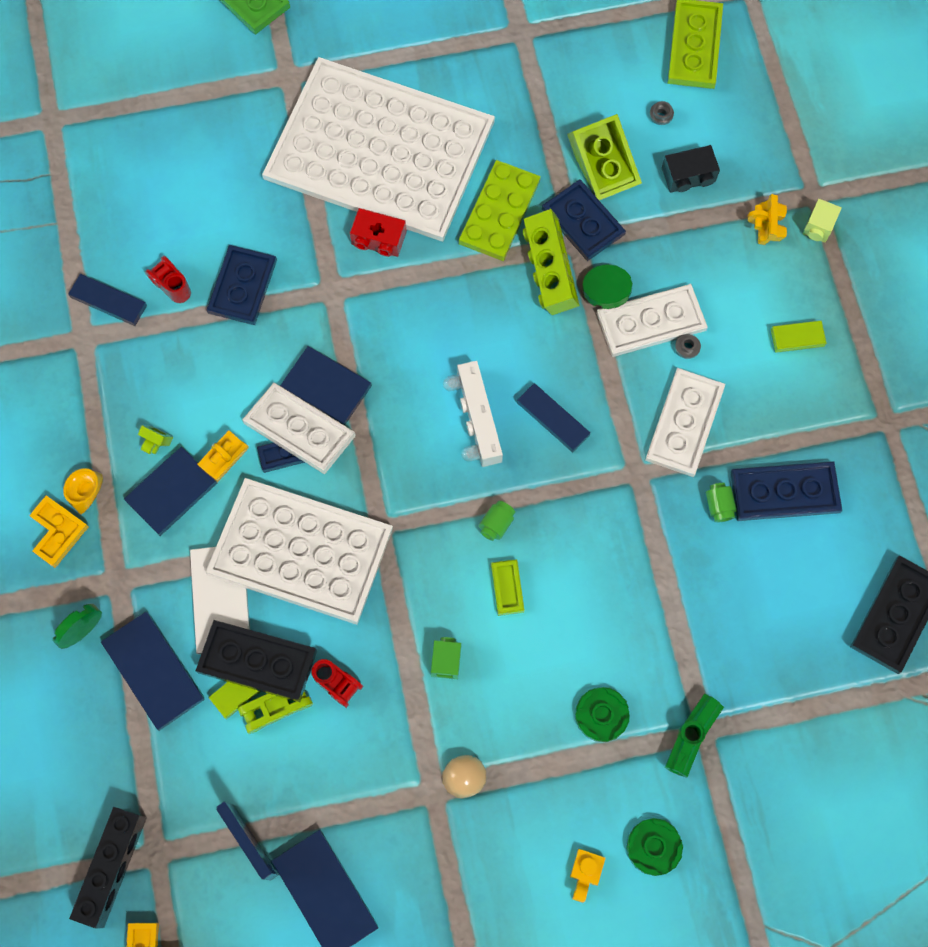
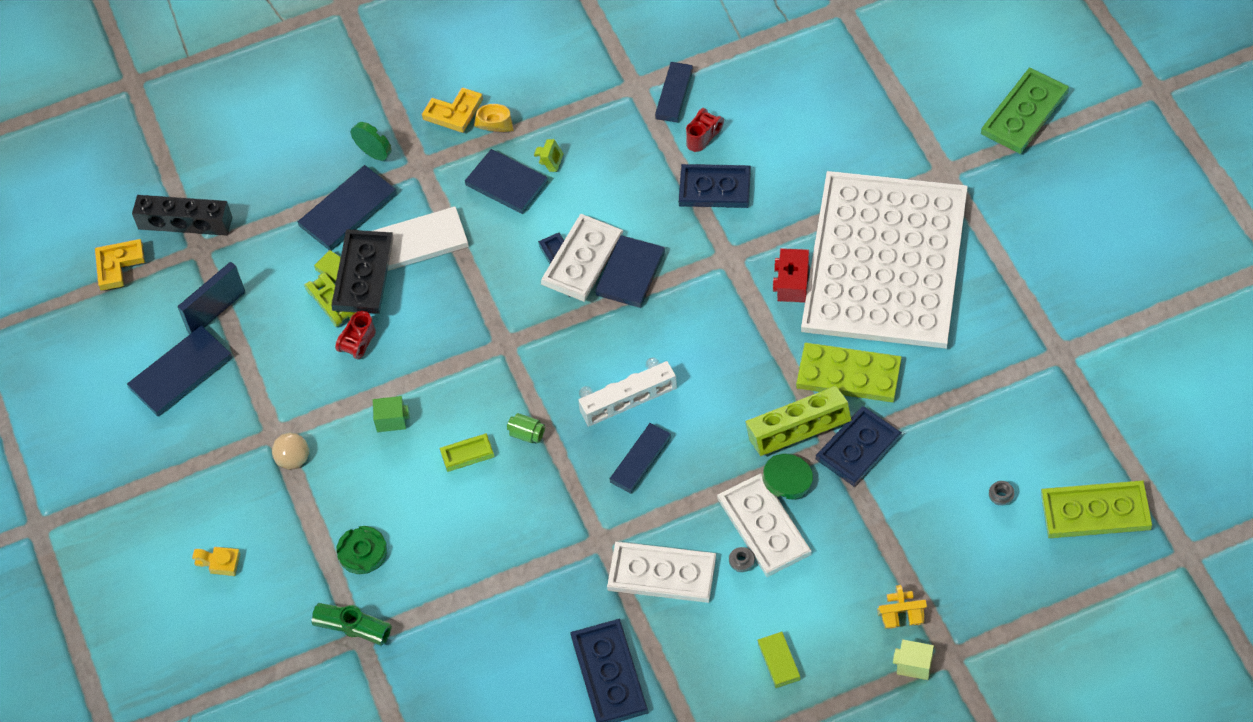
camera: 85 degrees right, 15 degrees down
(223, 456) = (542, 206): yellow hips -> none
(300, 551) = (467, 284): white plate -> none
(605, 157) = (931, 447): lime slope -> none
(654, 847) = (249, 612): green tile -> none
(690, 169) = (940, 527): black brick -> none
(721, 502) = (582, 612): bright green brick -> none

